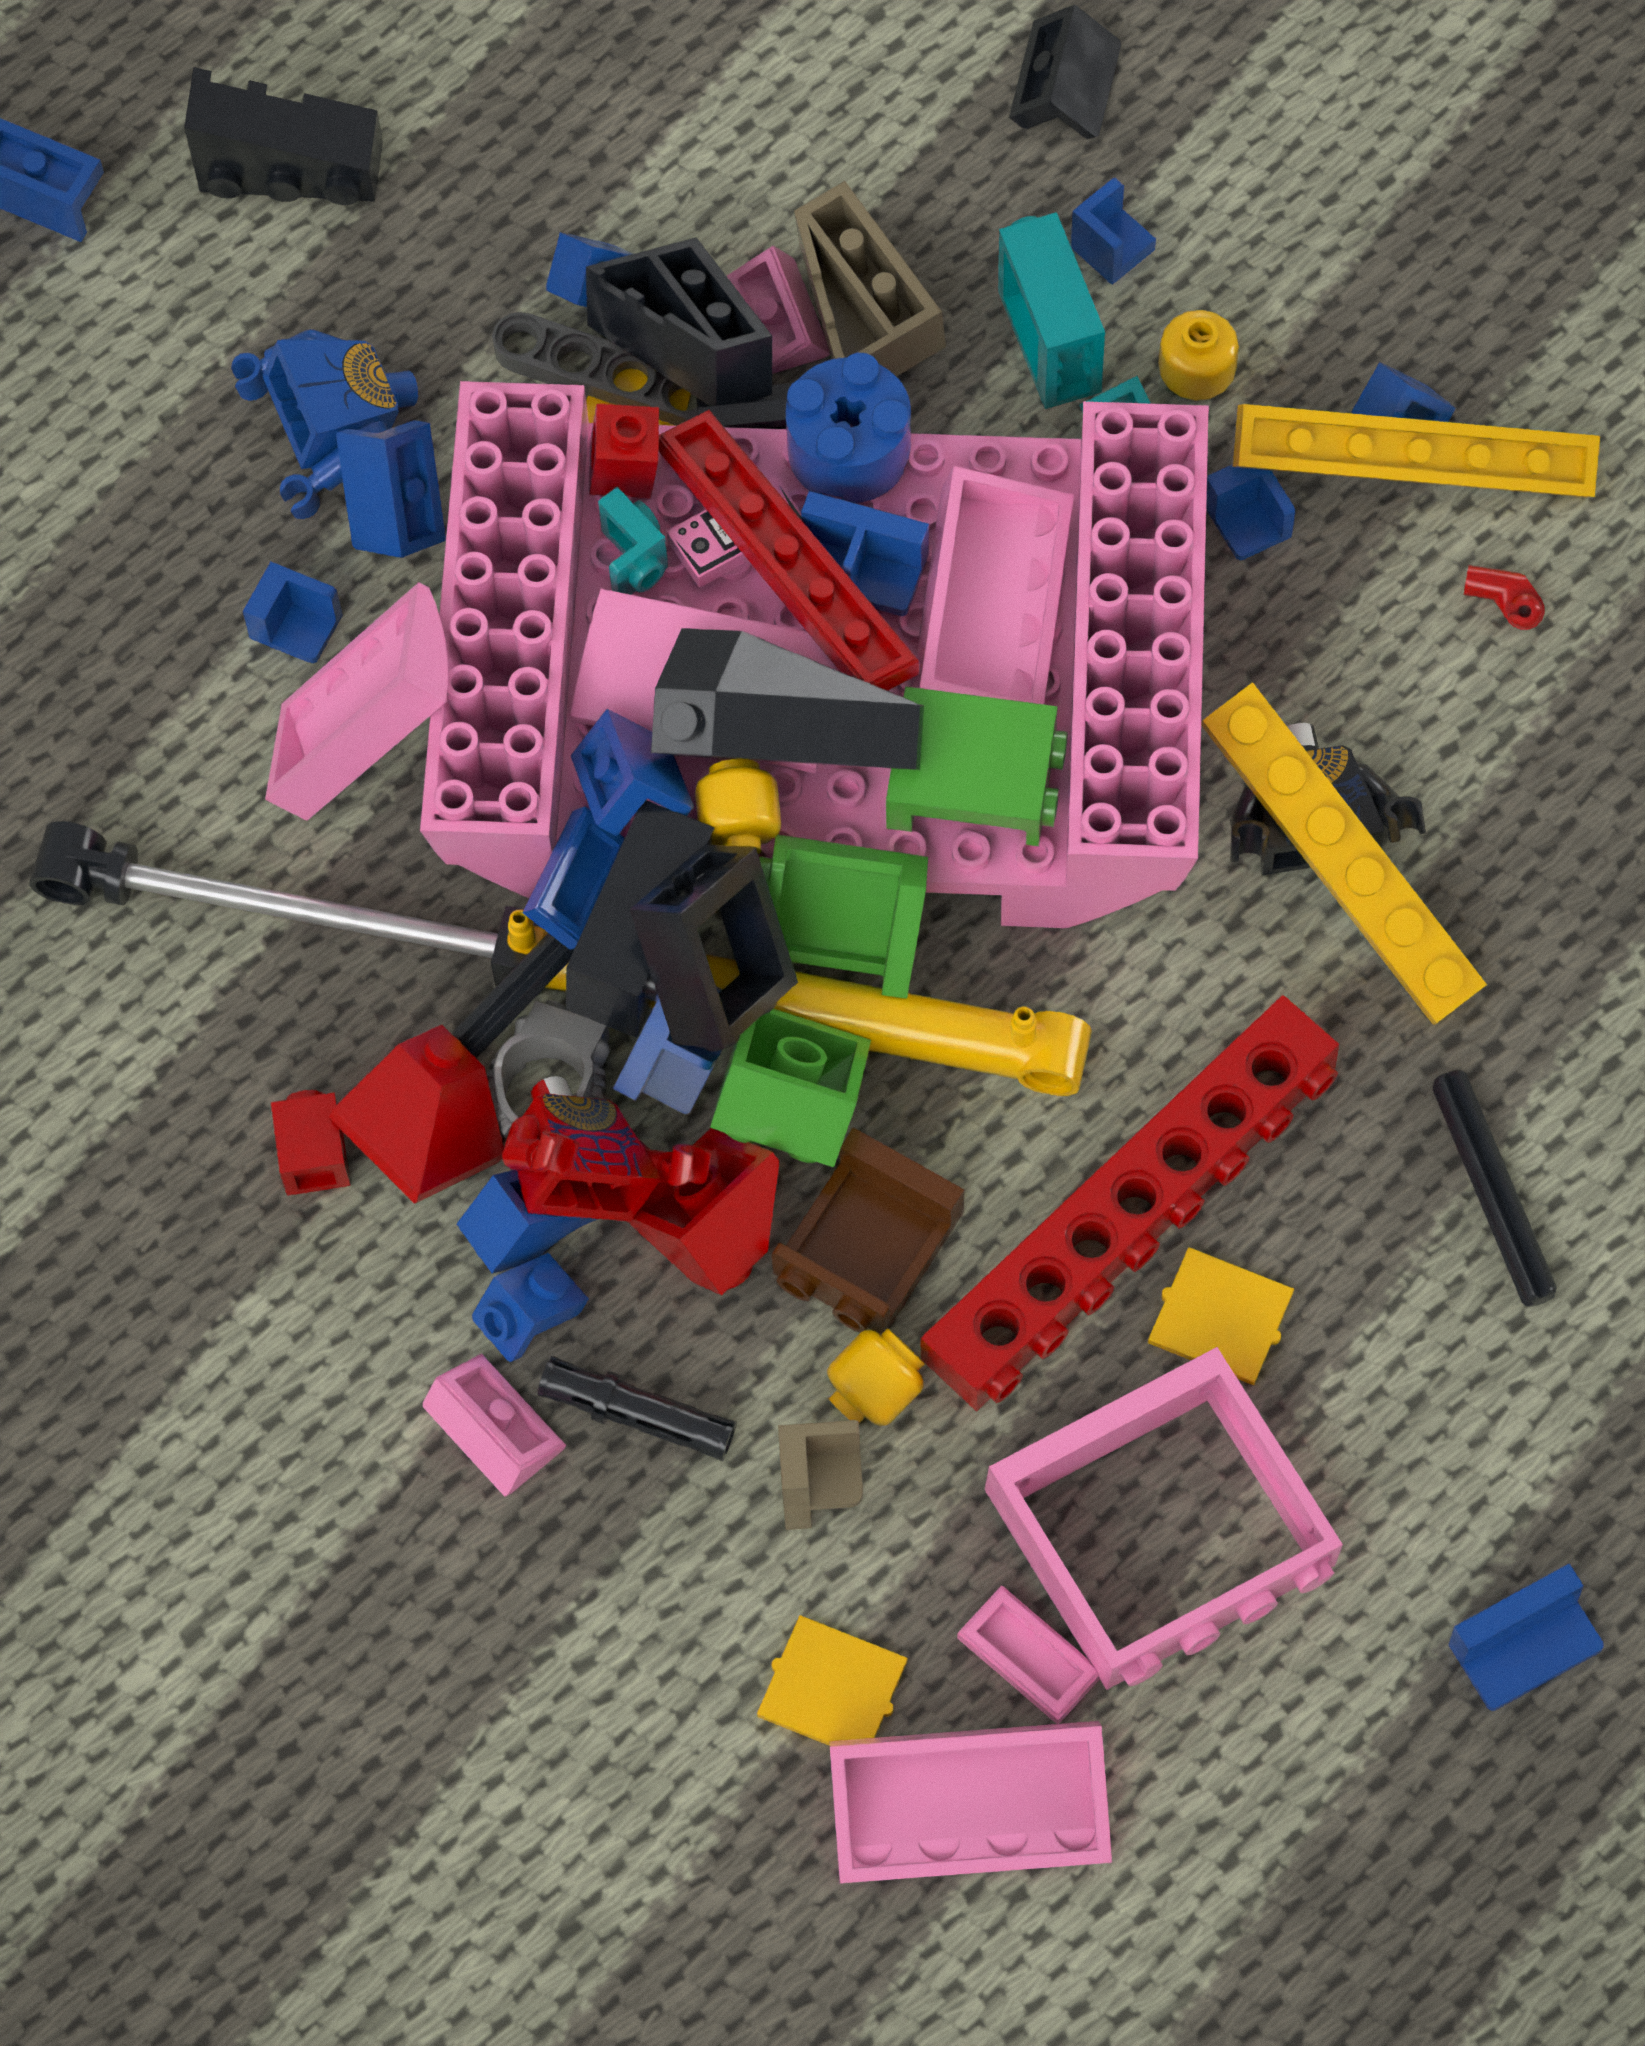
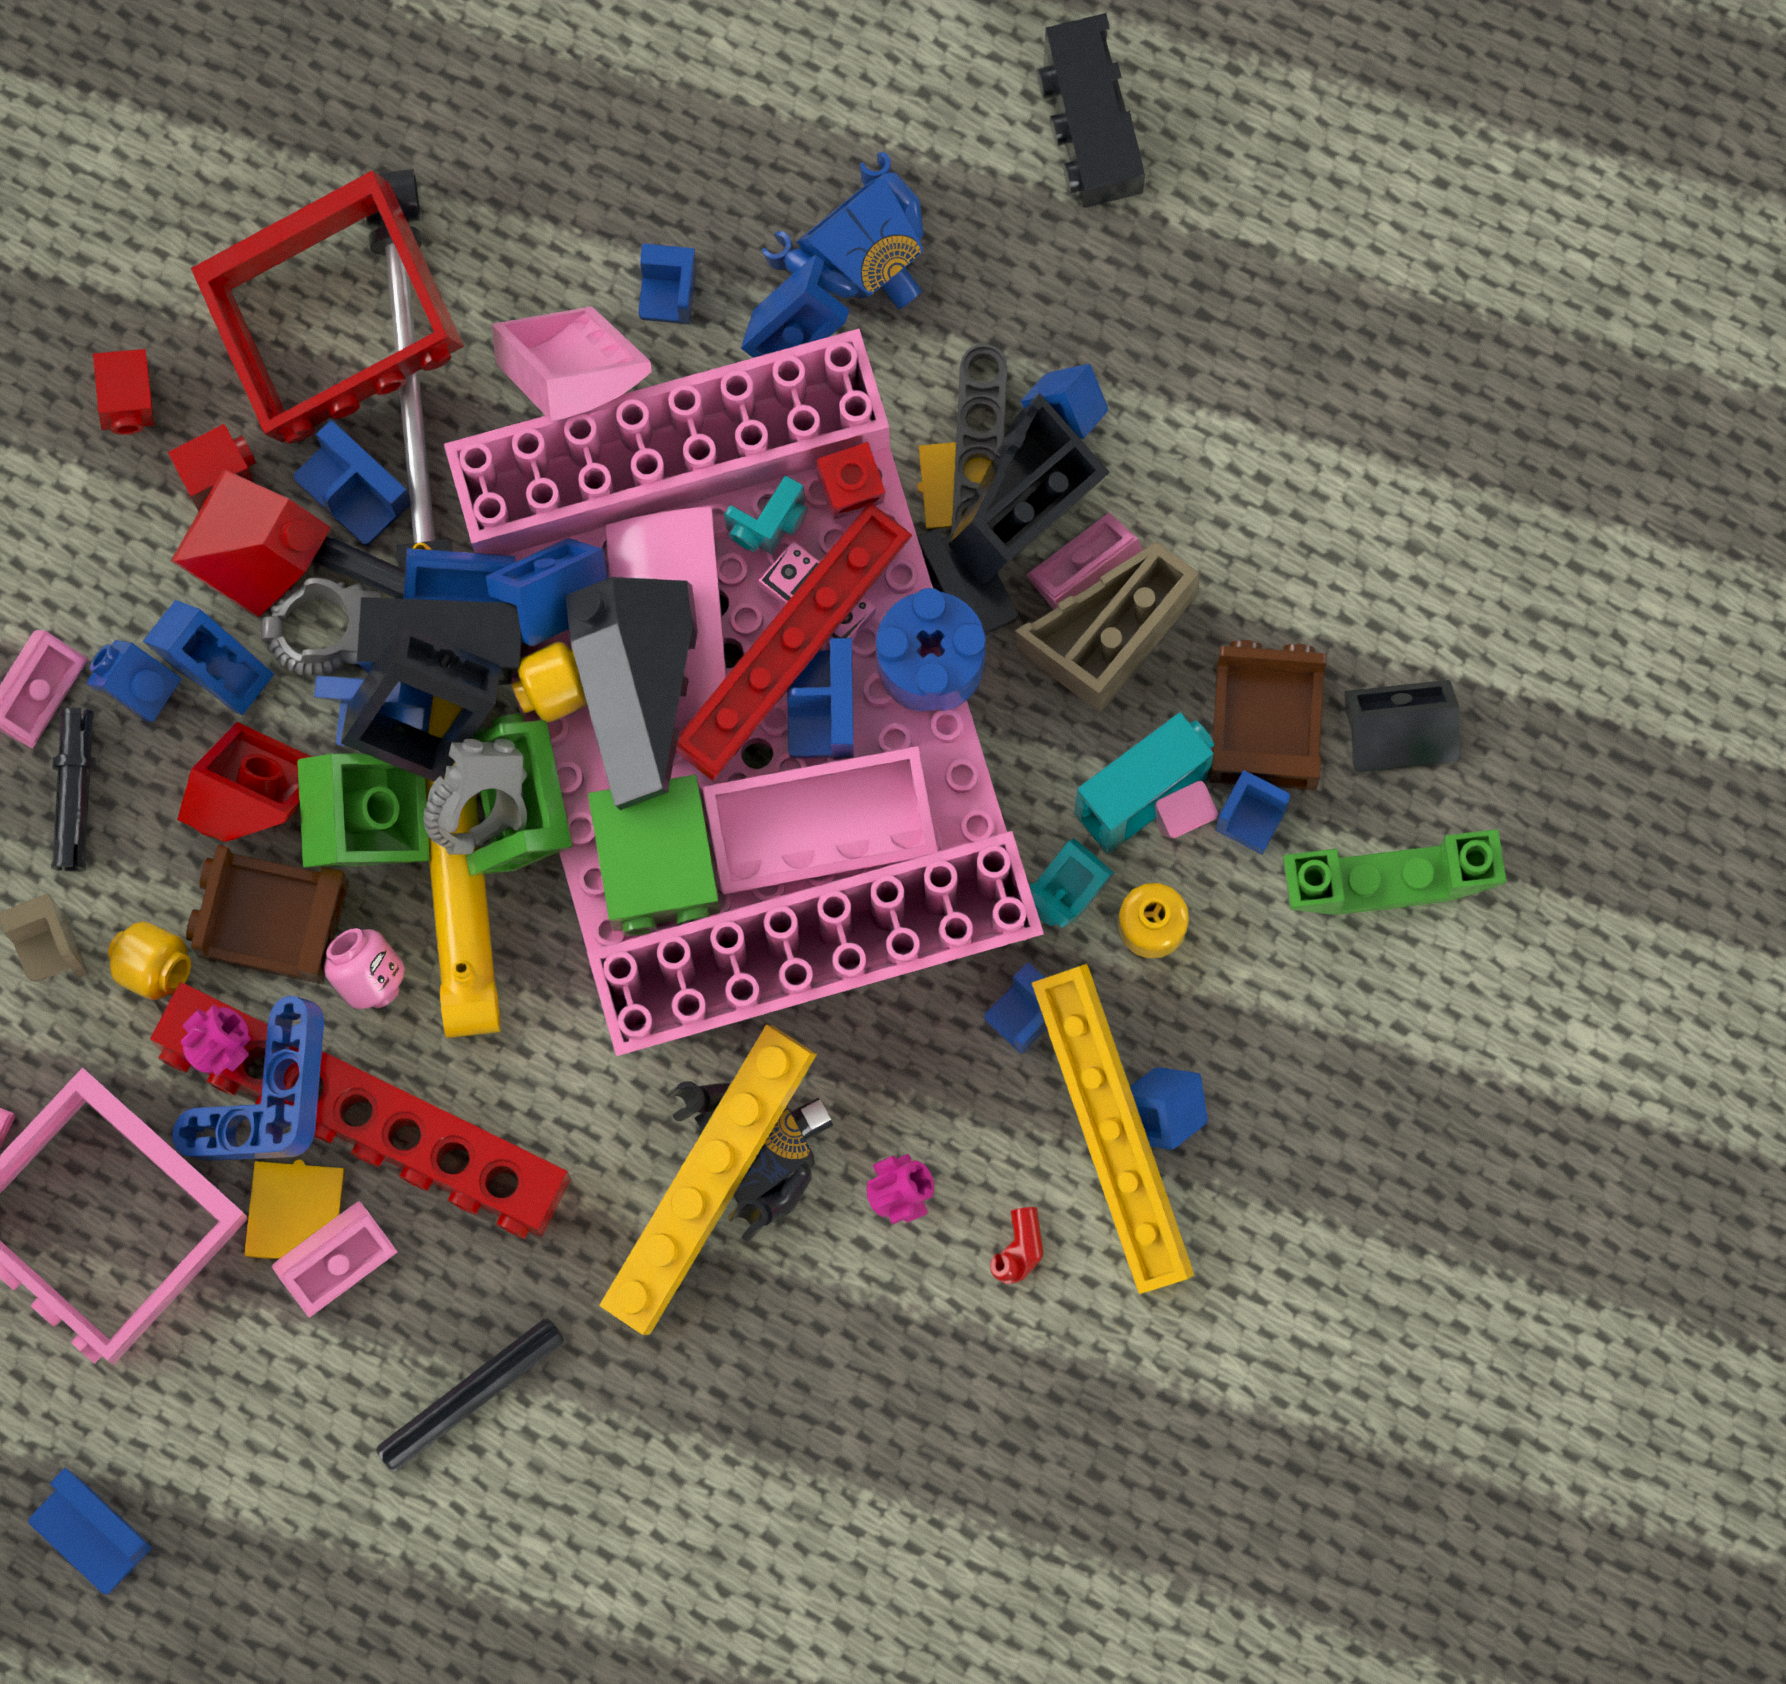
camera: 70 degrees right, 10 degrees up
(178, 1211) = (123, 391): none -> red brick
(288, 915) = (288, 238): none -> red window
(388, 1002) = (352, 485): none -> blue panel
(586, 1160) = (249, 674): red torso -> none
(835, 932) = (476, 769): none -> light grey piece
(972, 1145) = (364, 968): none -> bright pink head
(999, 179) = (1268, 714): none -> reddish brown panel
(1013, 1302) = (215, 1040): none -> dark pink gear
(1100, 281) = (1185, 810): none -> bright pink slope
(1118, 1284) = (270, 1116): none -> blue beam
(1231, 112) = (1396, 878): none -> bright green slope
(1291, 1282) = (334, 1259): none -> bright pink slope
(1408, 681) = (900, 1188): none -> dark pink gear

